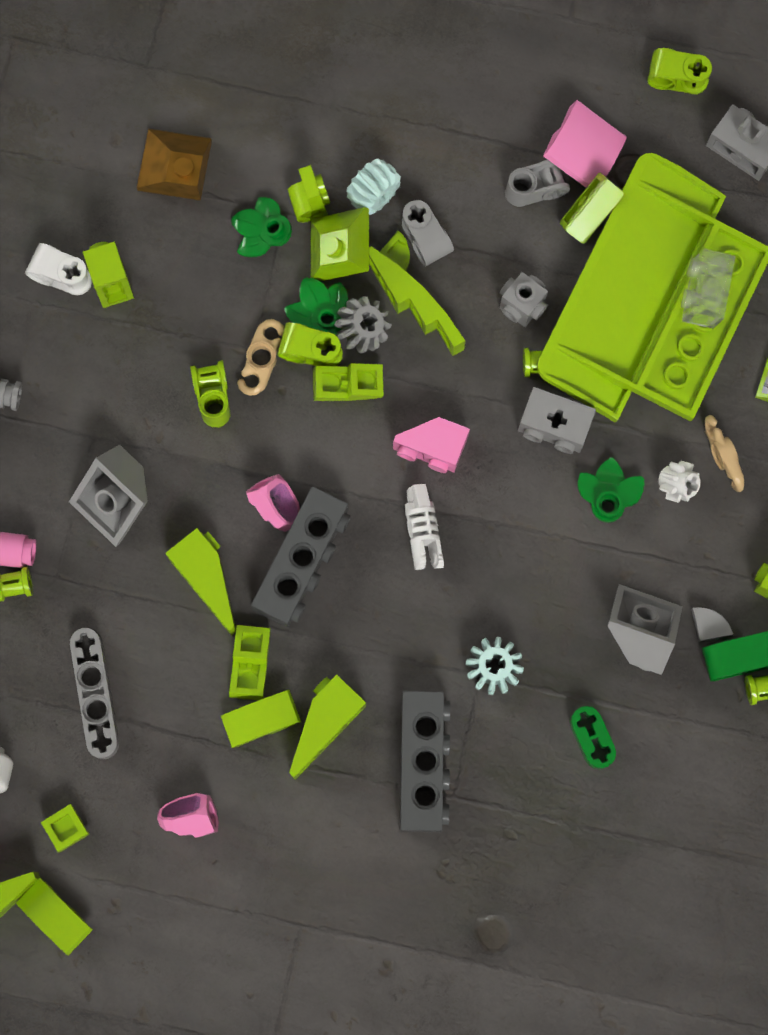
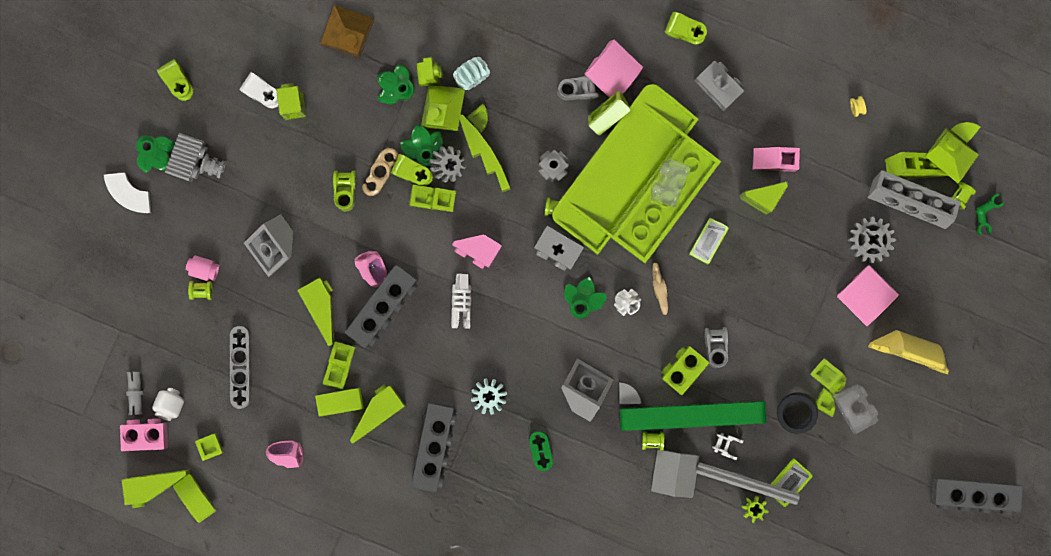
camera: 10 degrees right, 10 degrees up
(427, 237) = (501, 112): light grey piece -> none

